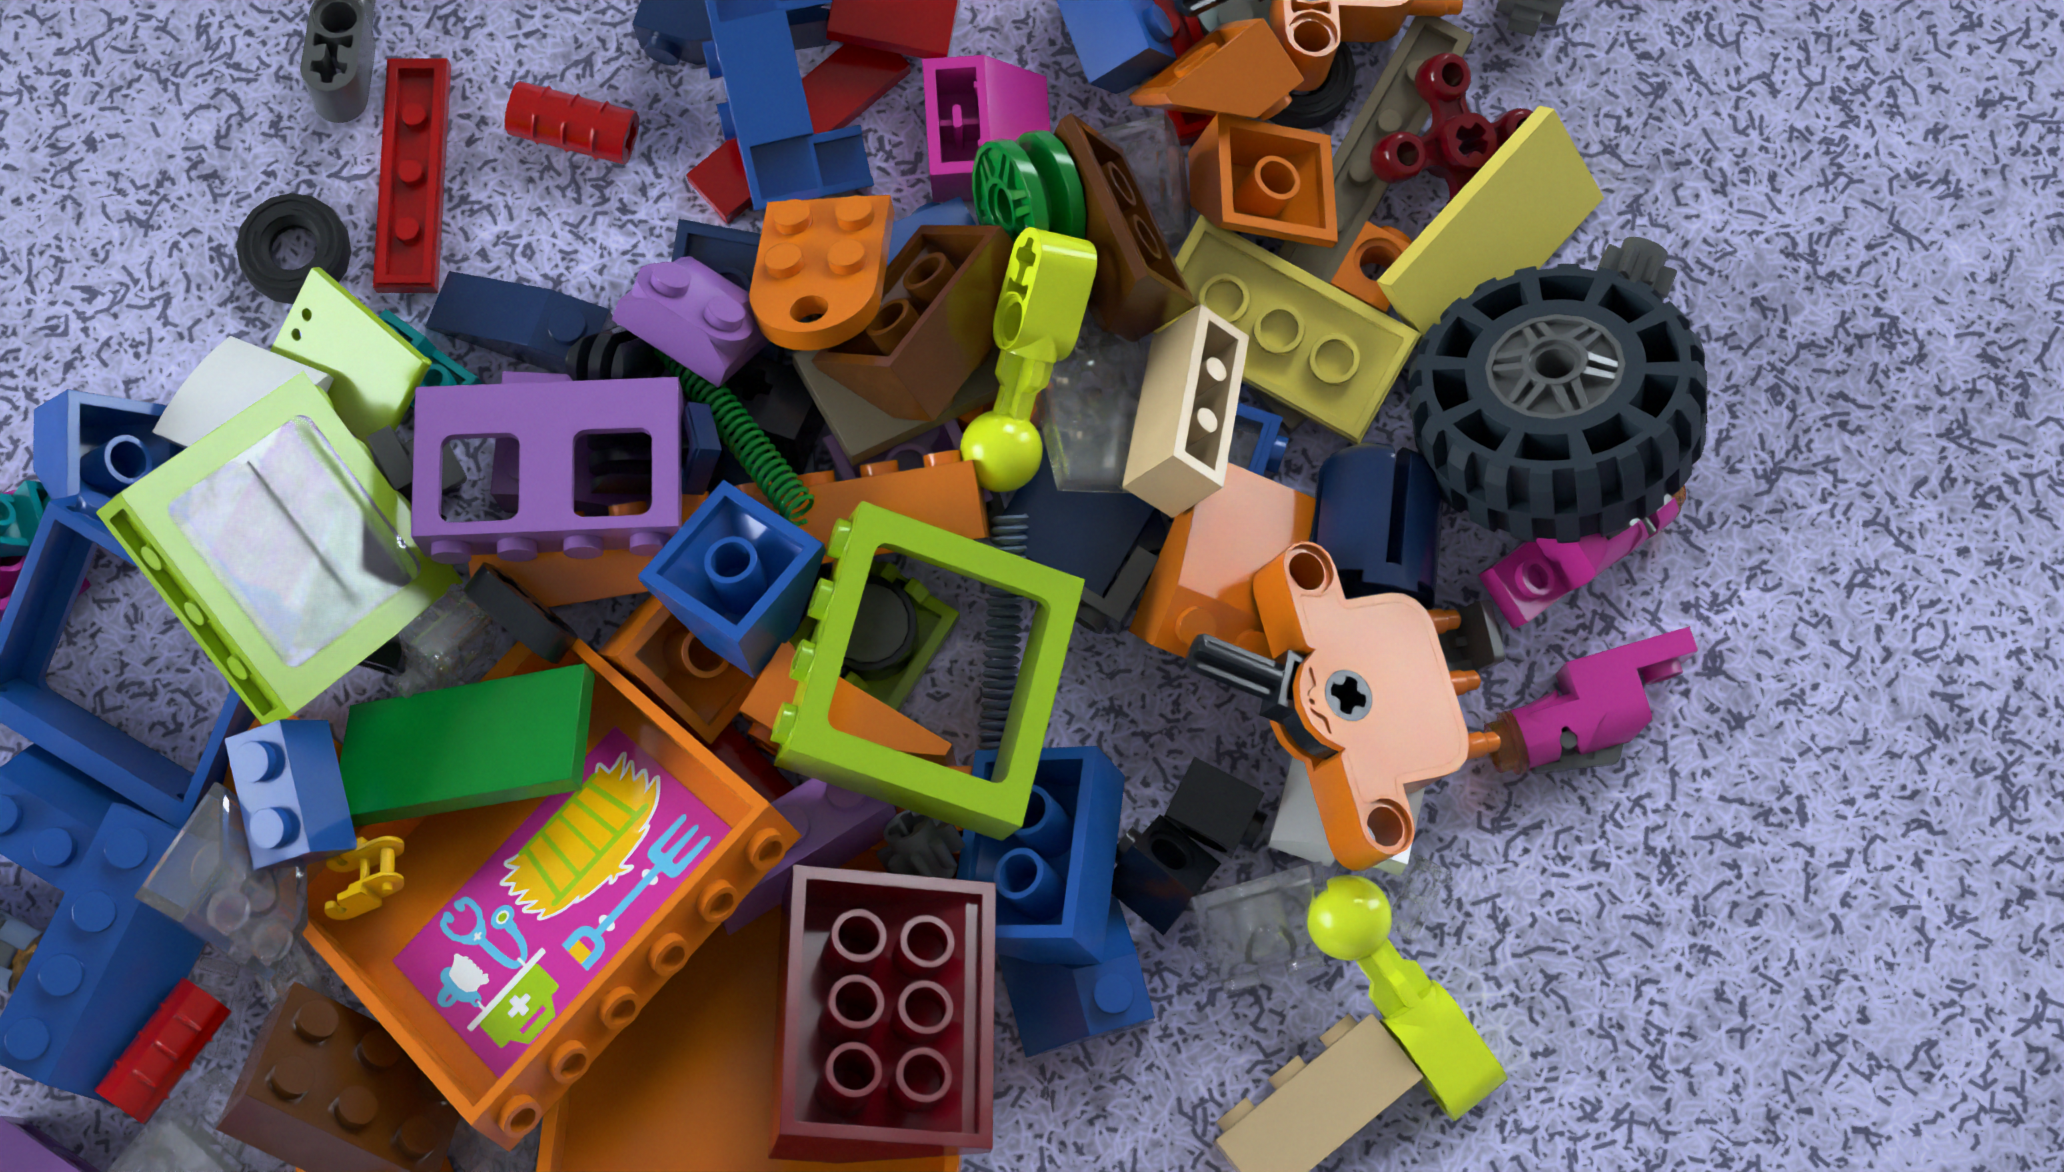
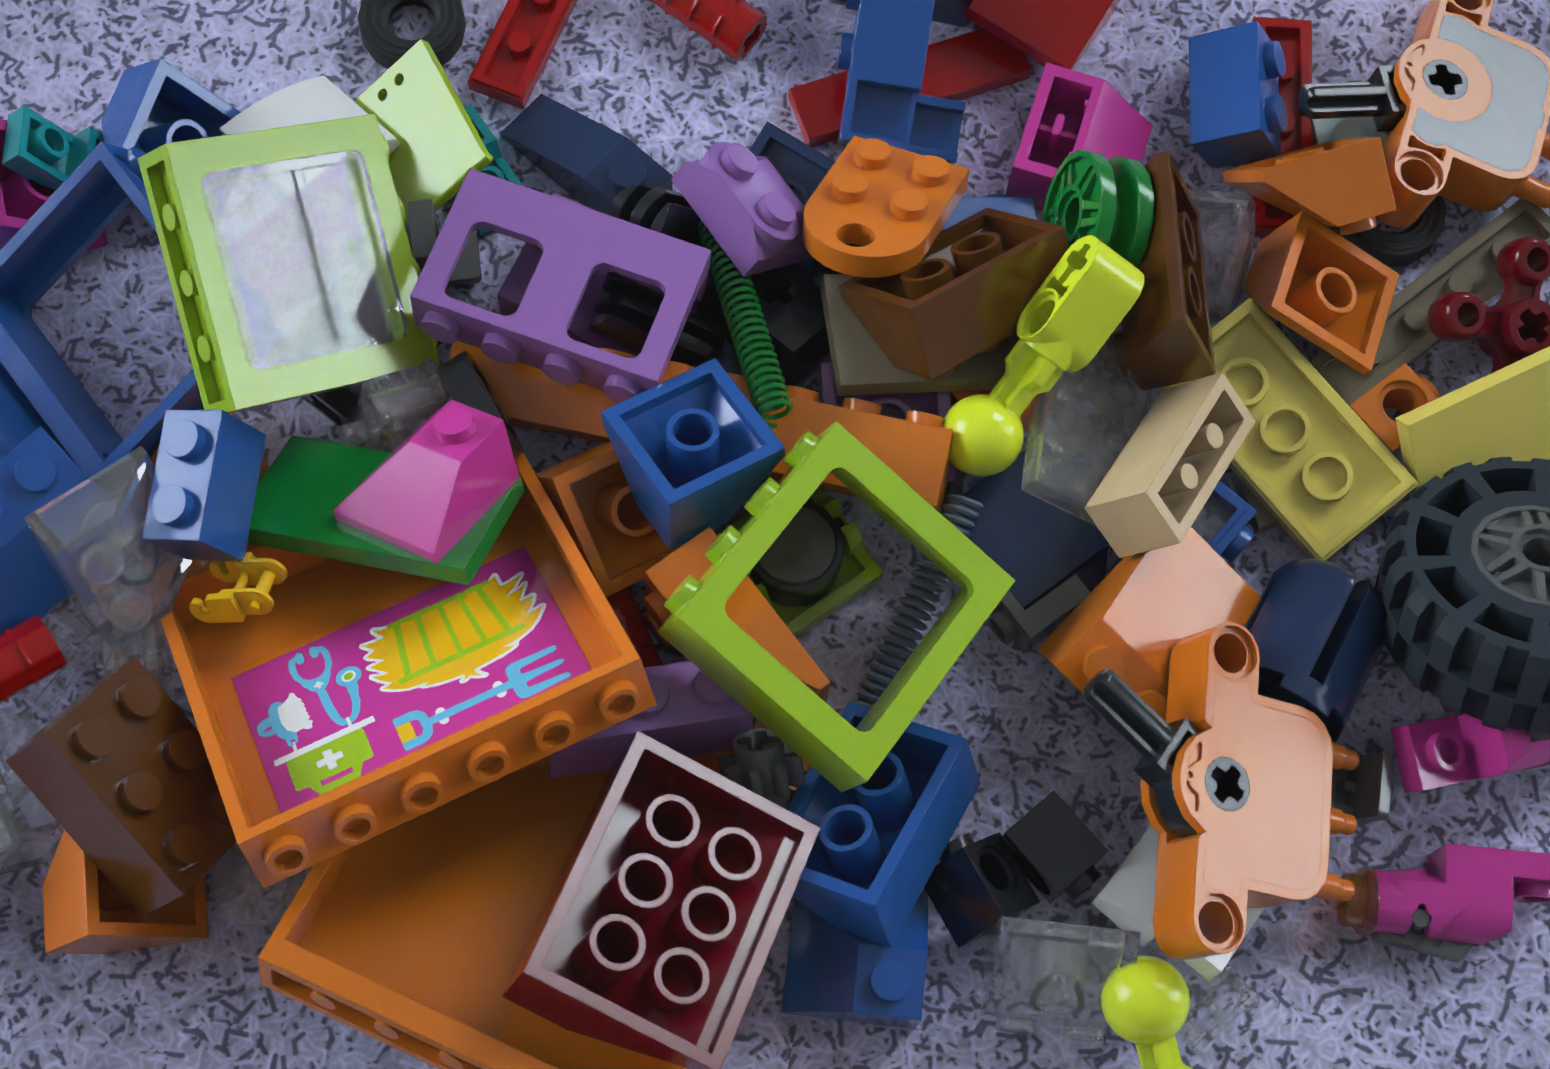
camera: 15 degrees right, 5 degrees down
(507, 705) = (435, 483): none -> dark pink slope
(703, 448) = (707, 326): dark blue tile -> none

